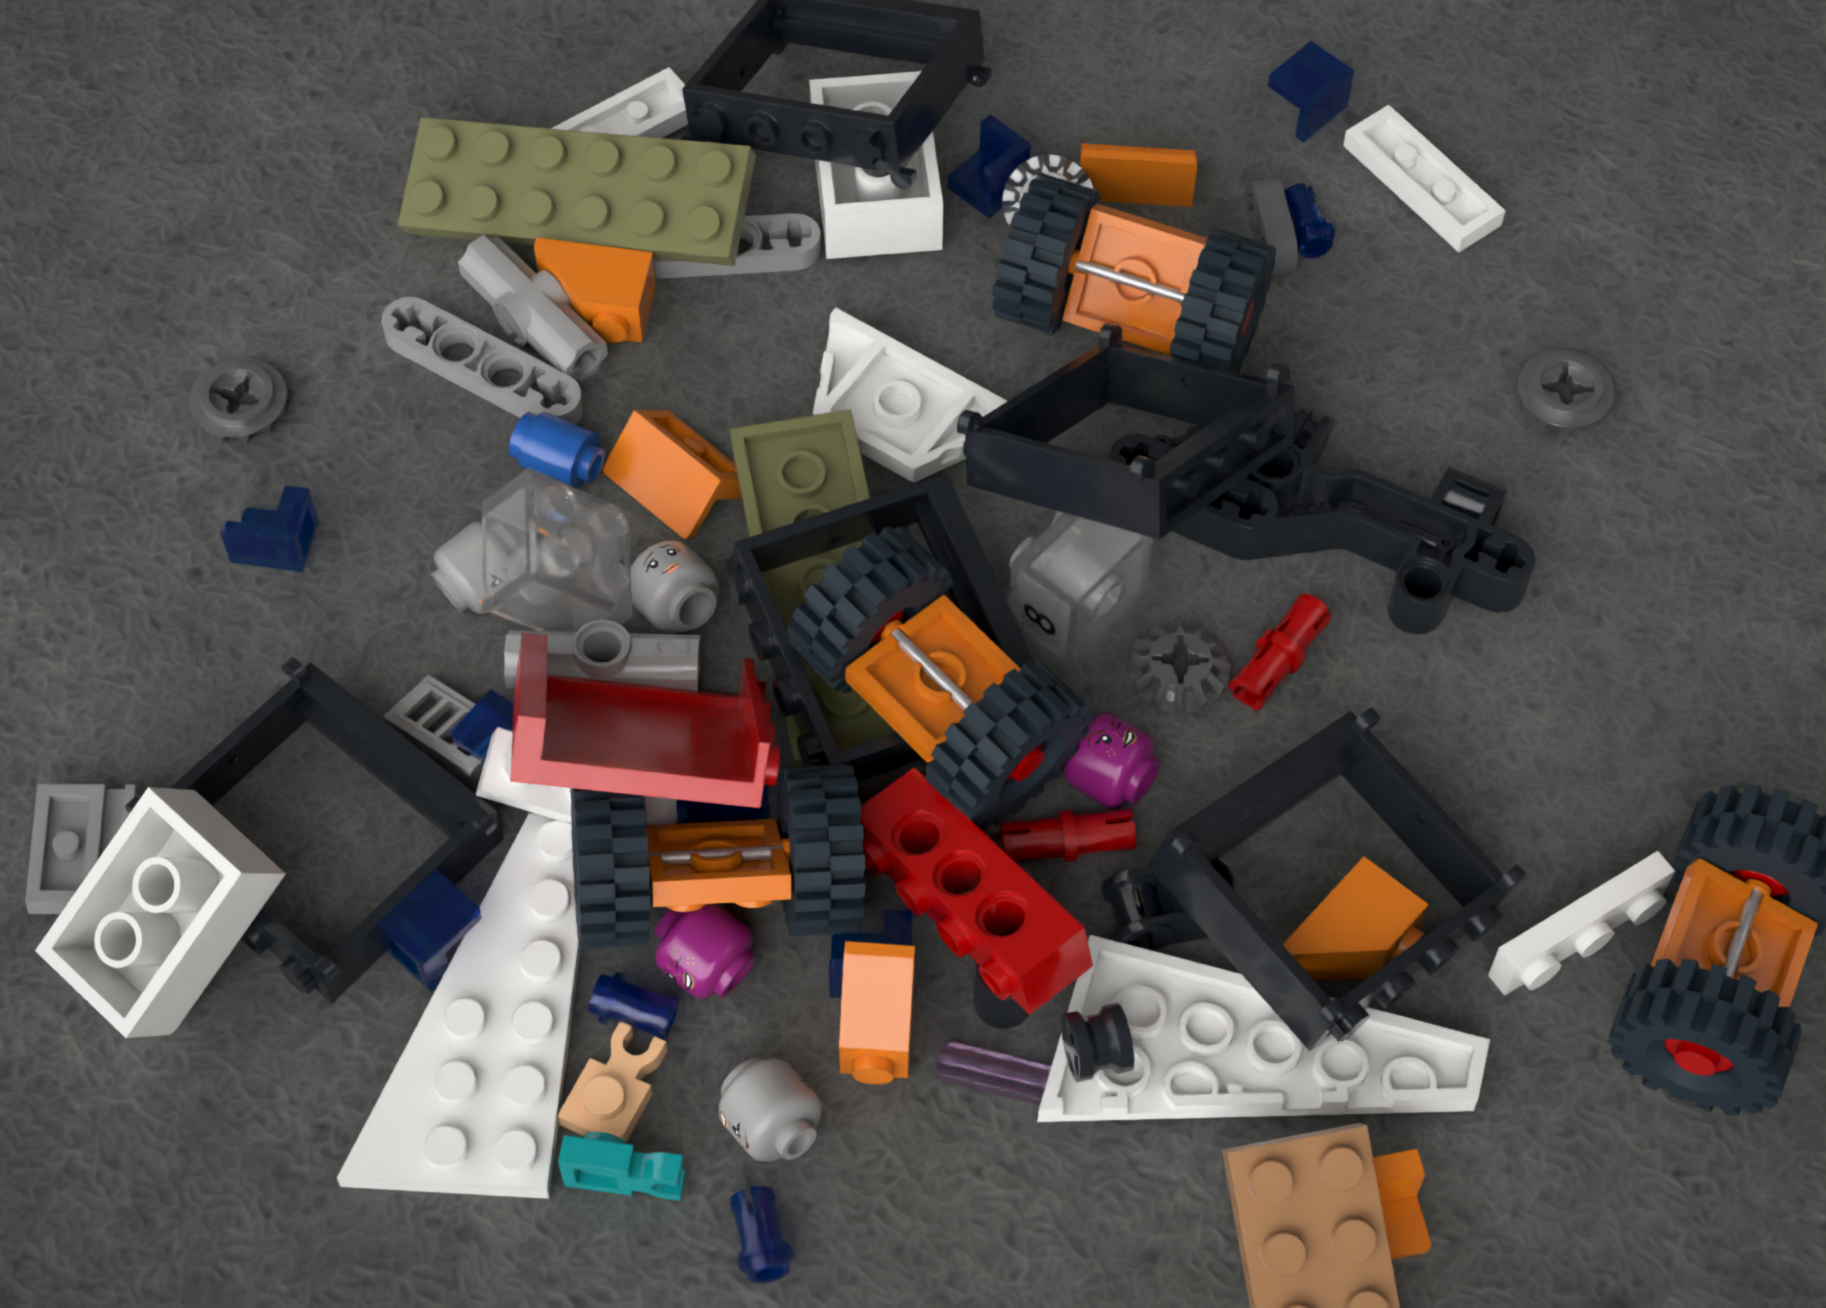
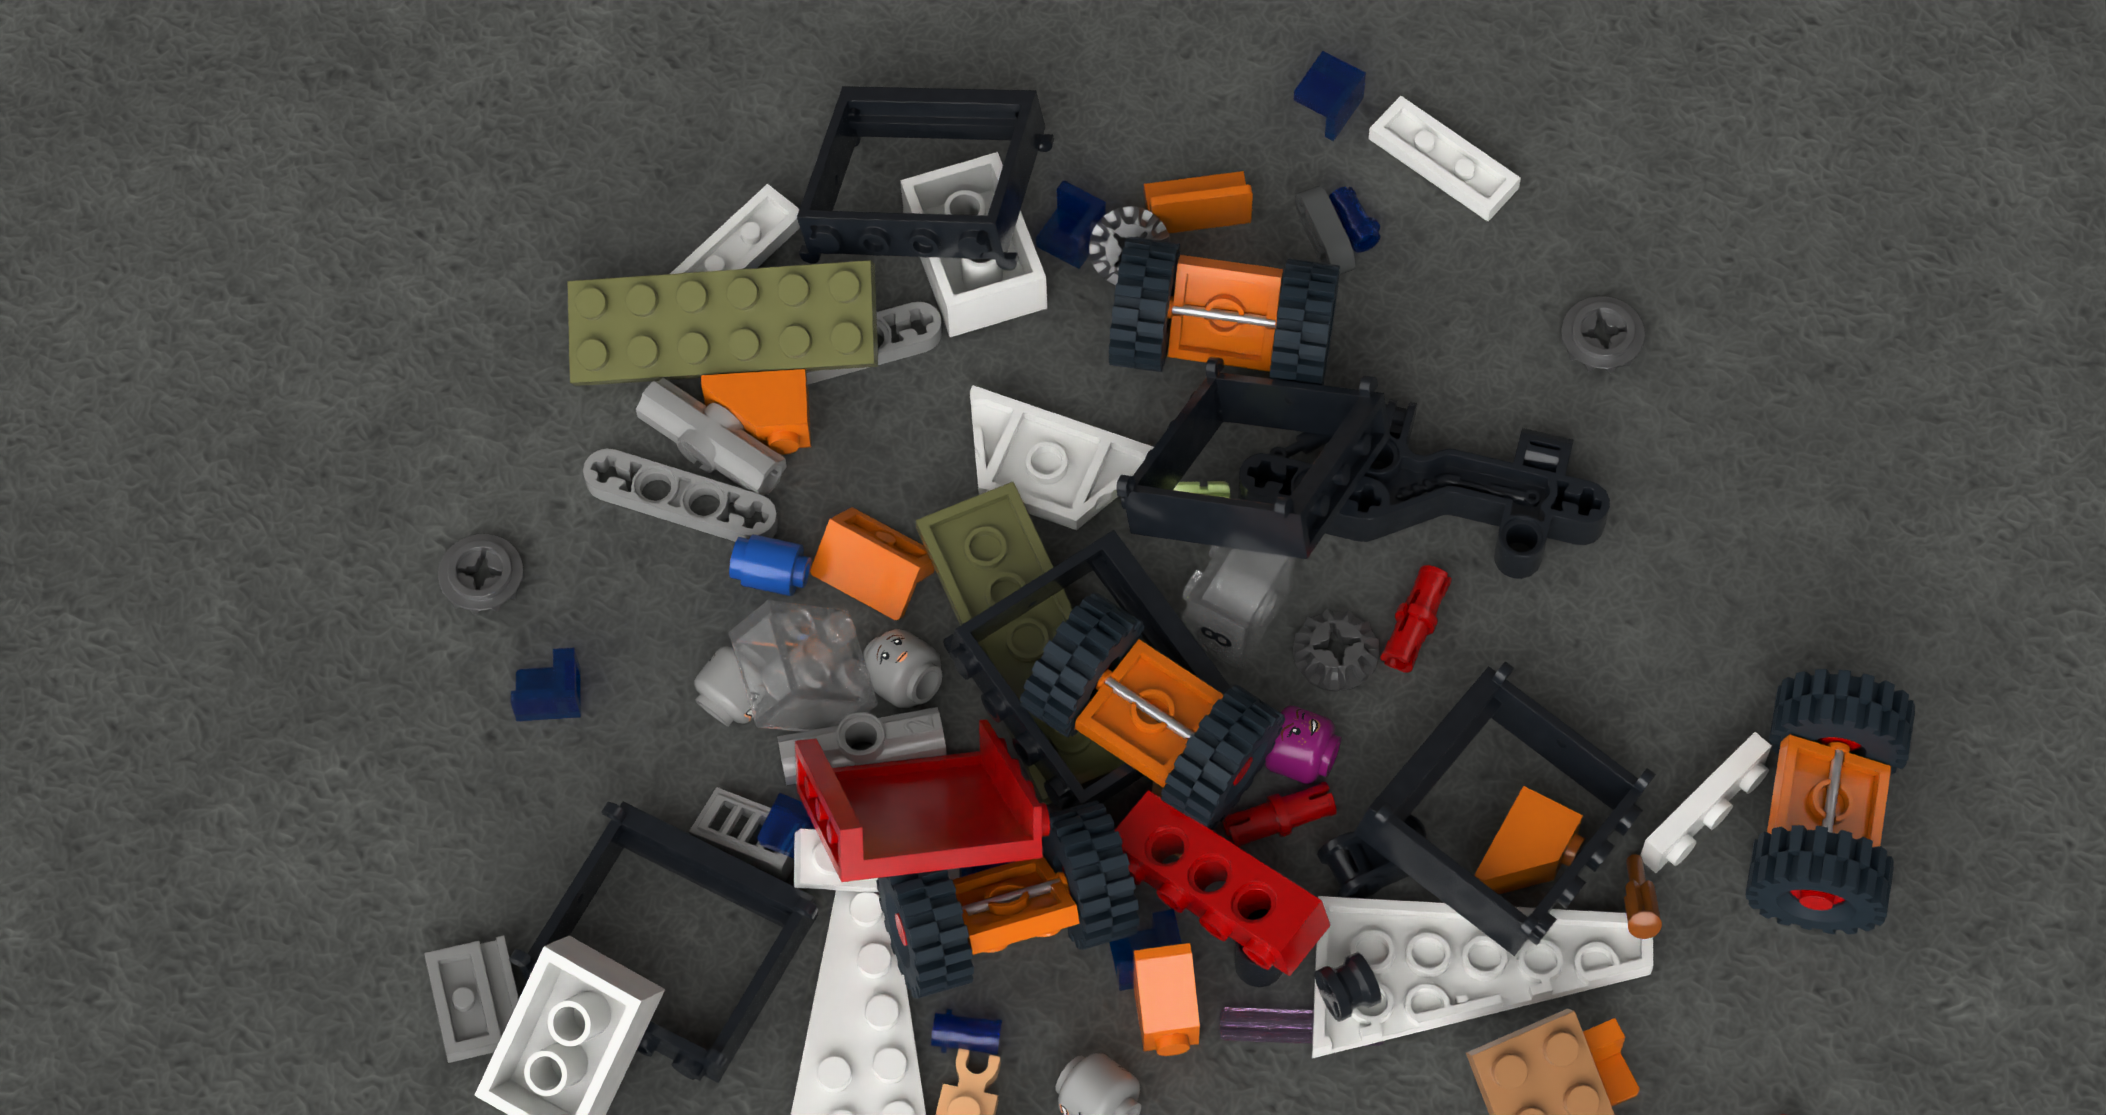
camera: 10 degrees left, 5 degrees up
(427, 926) = (785, 1005): clear blue panel -> none
(704, 950) = (1013, 977): magenta head -> none
(1478, 1020) = (1641, 901): none -> dark orange axle

